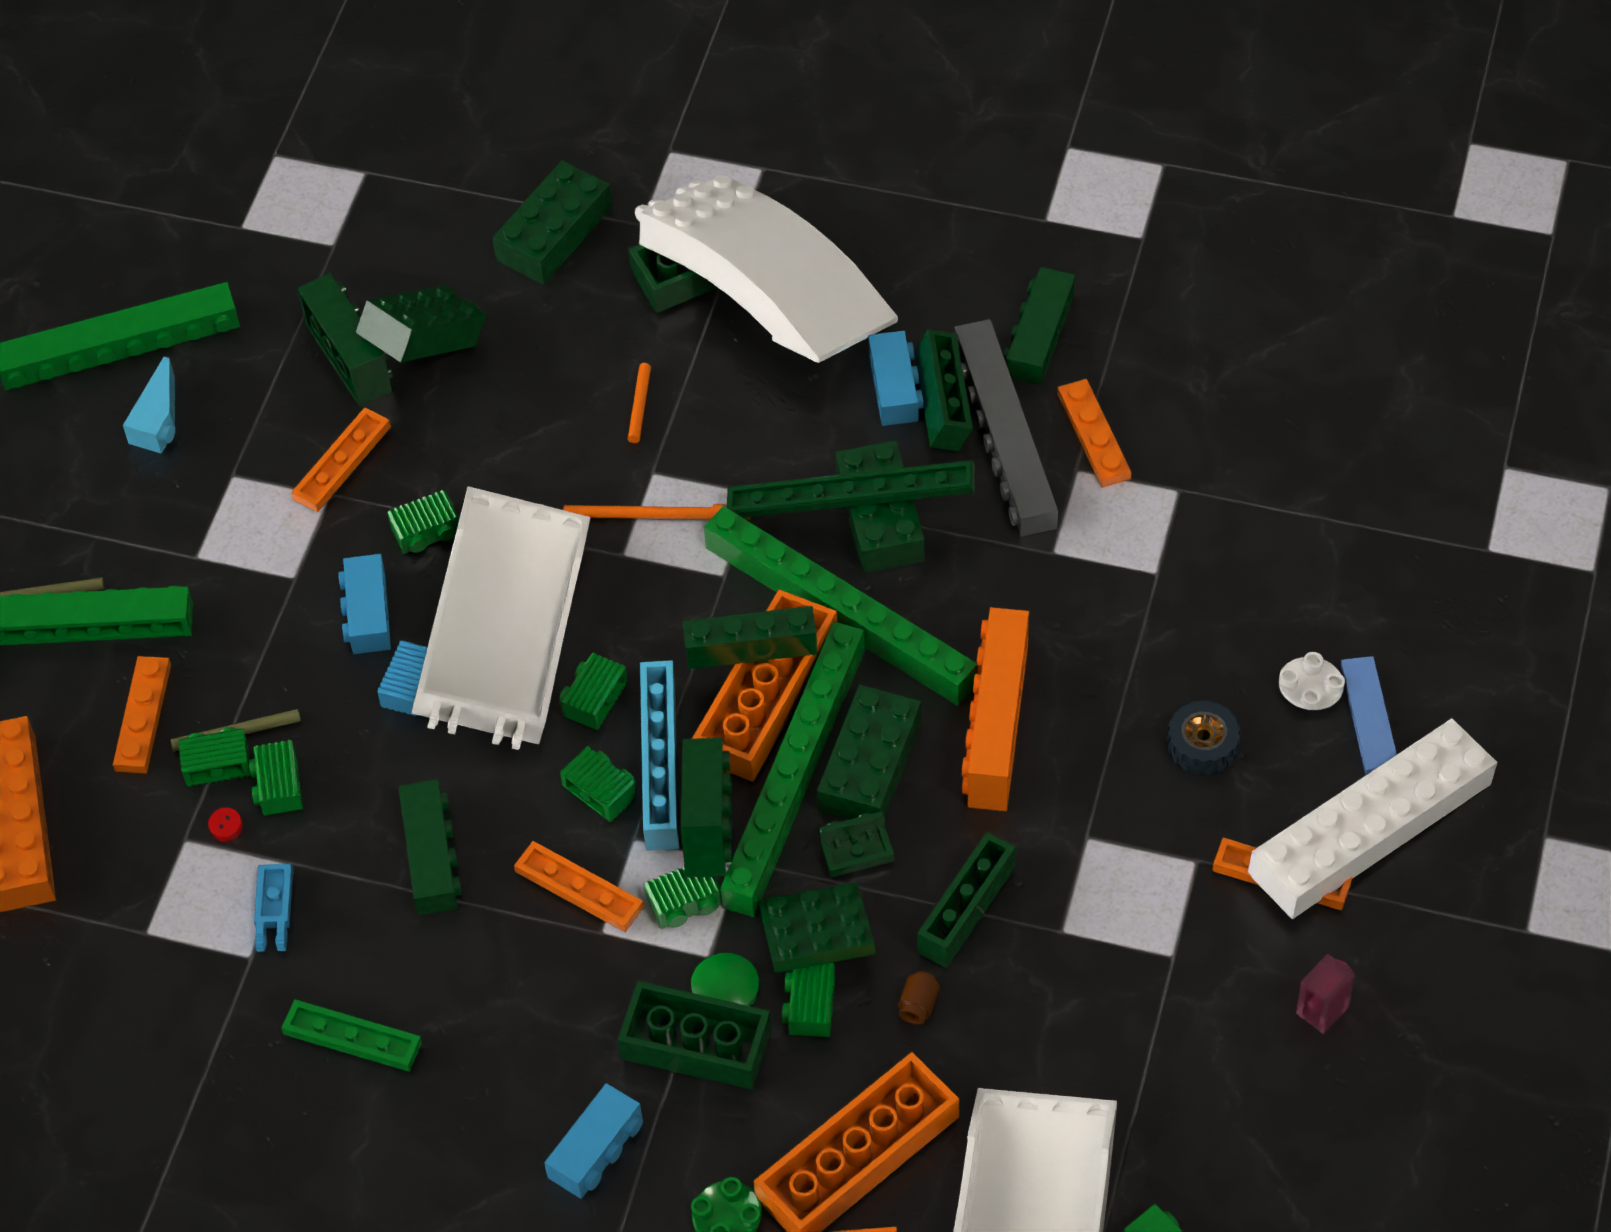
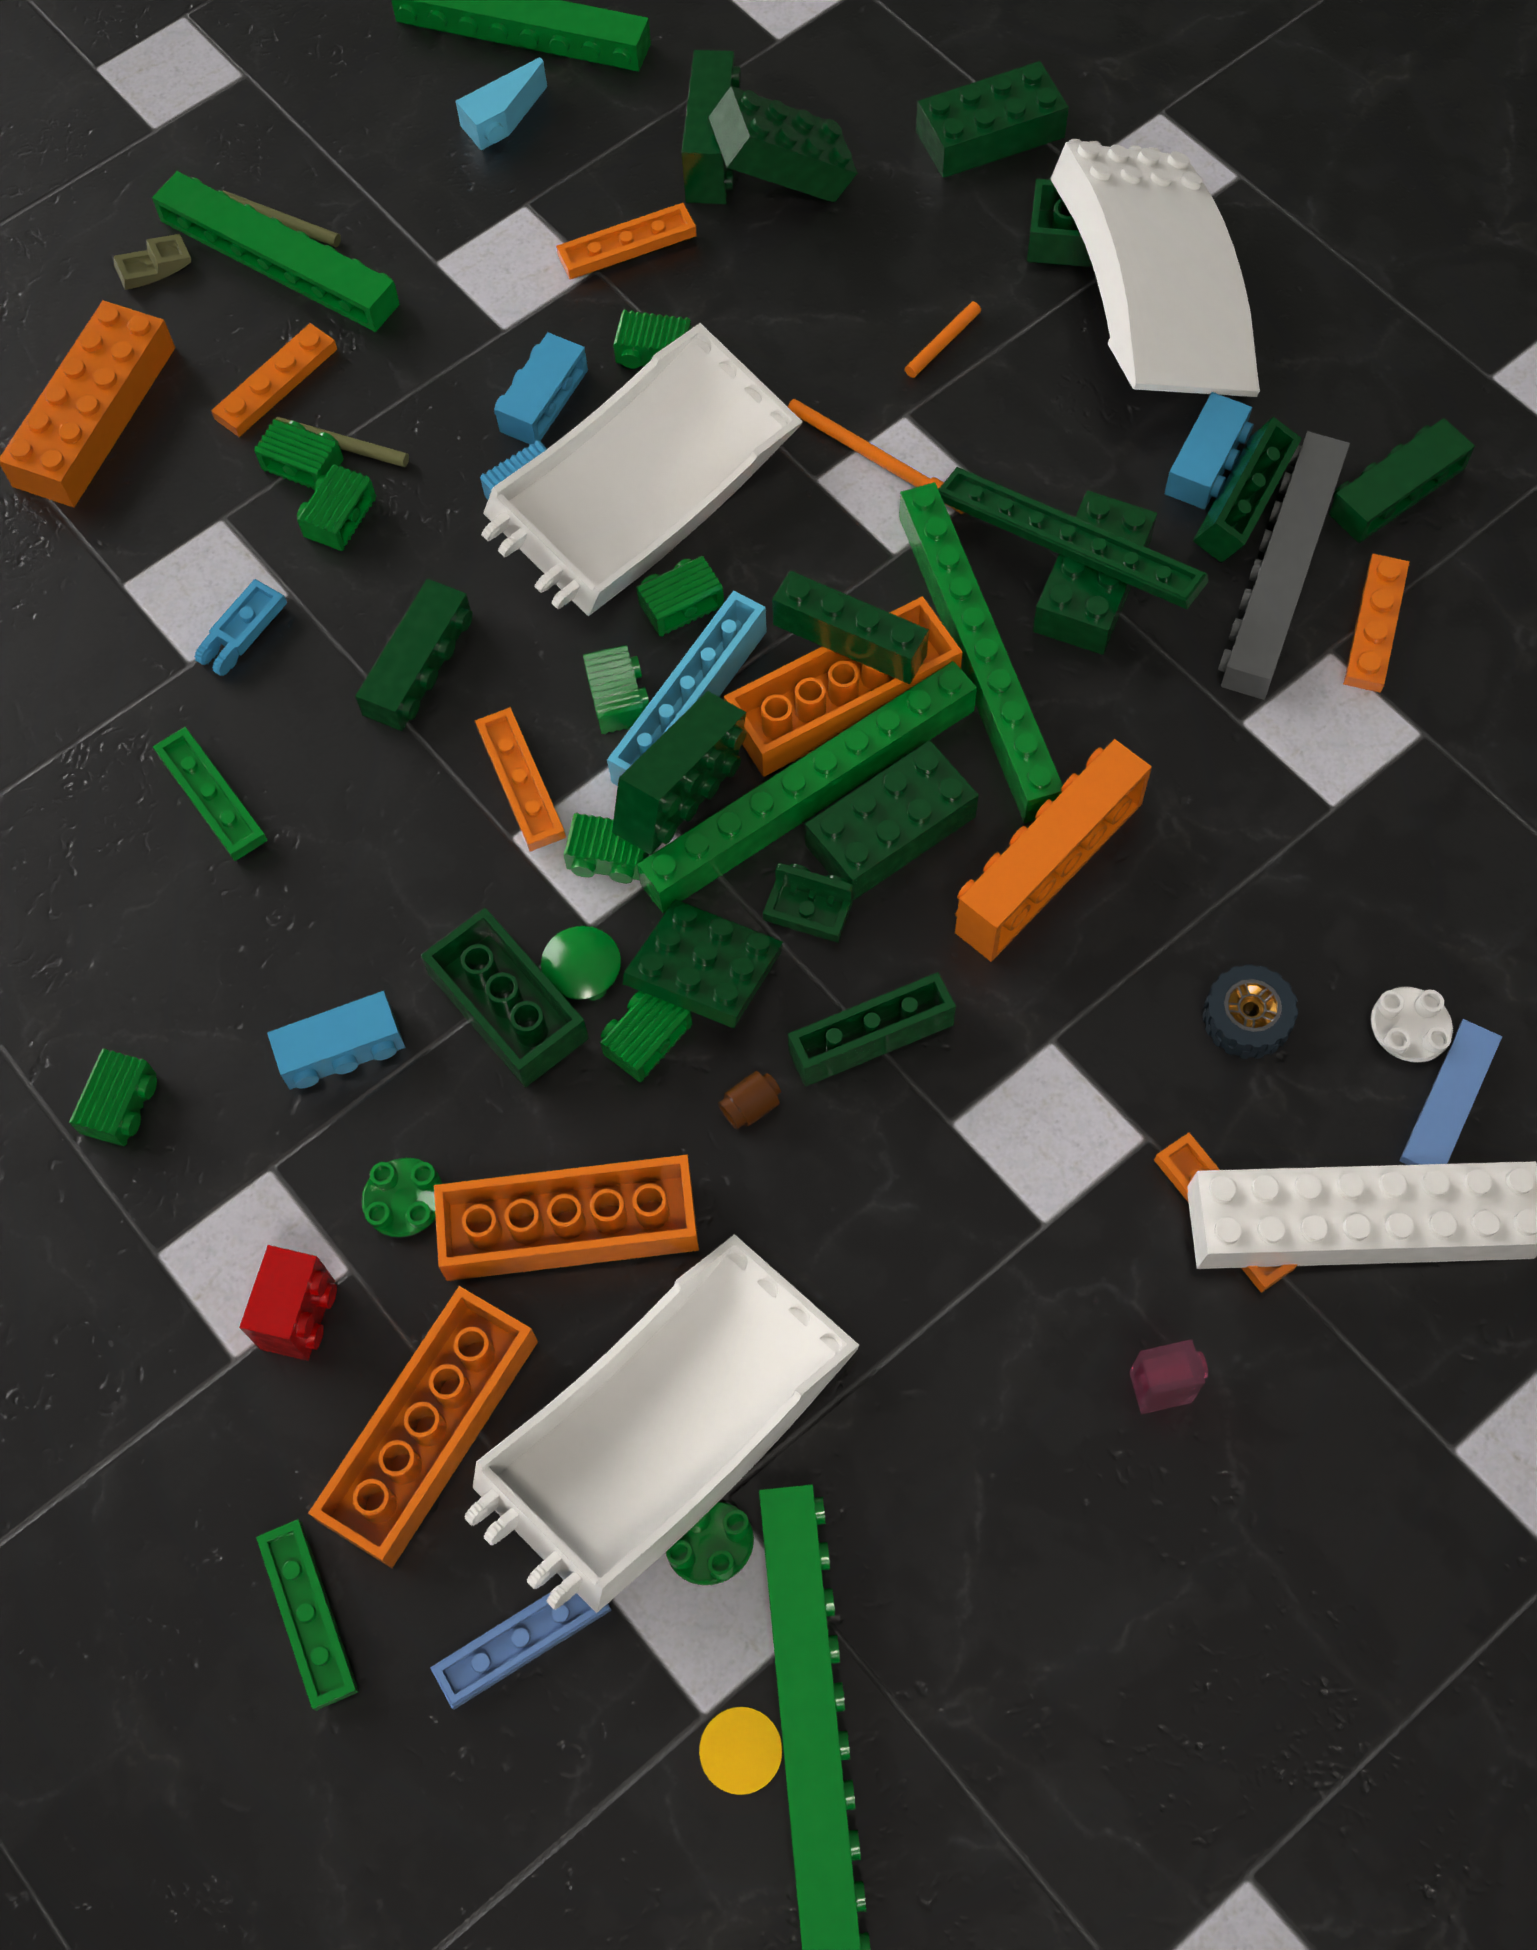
camera: 35 degrees right, 10 degrees up
(225, 824) = (263, 524): red tile -> none

